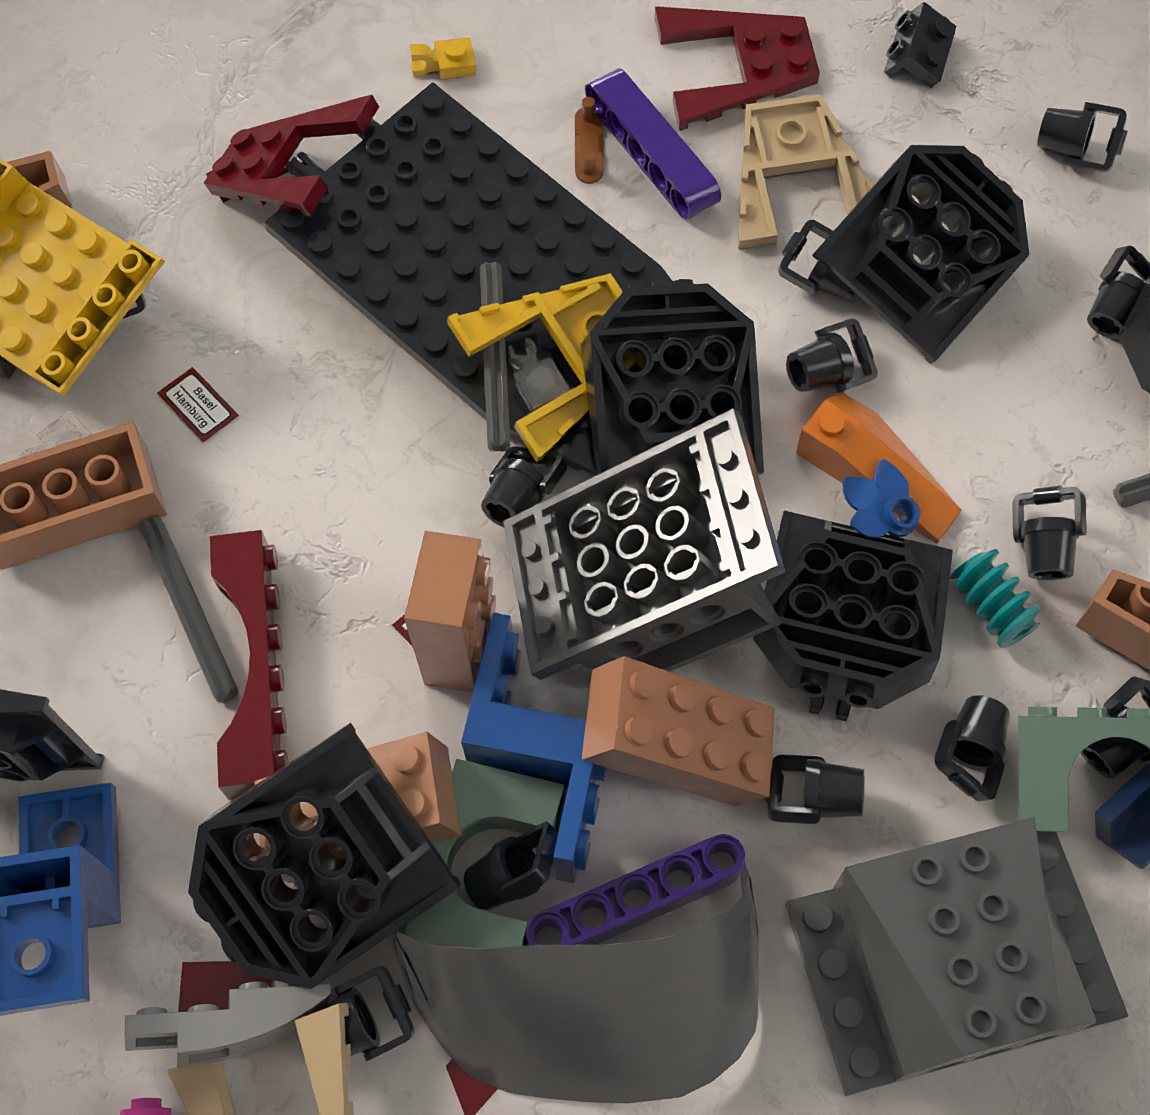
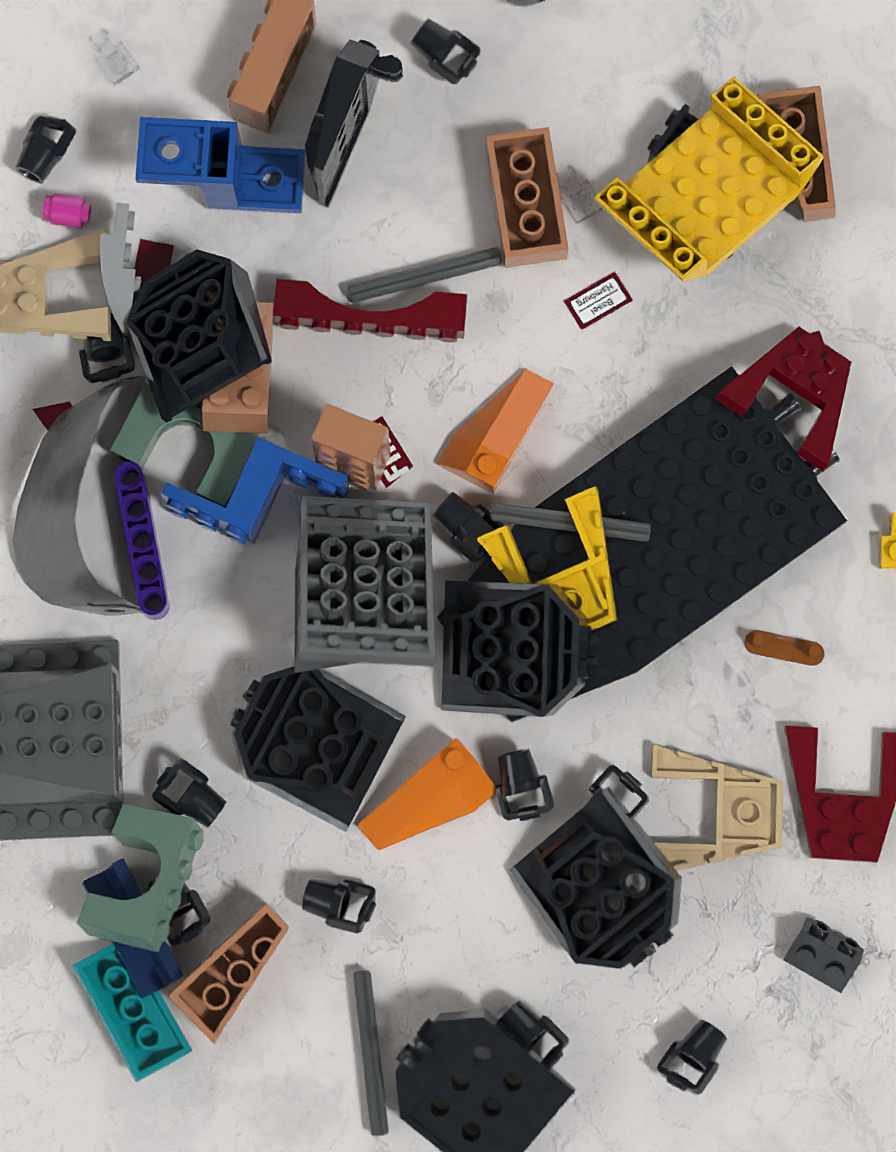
camera: 100 degrees right, 15 degrees up
(397, 478) = (492, 436): none -> orange wedge
(512, 868) = (175, 461): black piece -> none
(537, 381) = (542, 552): clear plate -> none
(653, 144) = (765, 695): dark purple beam -> none
(678, 732) = (235, 586): nougat brick -> none
(828, 790) = (183, 682): black piece -> none
(878, 499) = (390, 778): blue plate -> none
(996, 598) = (297, 848): teal piece -> none

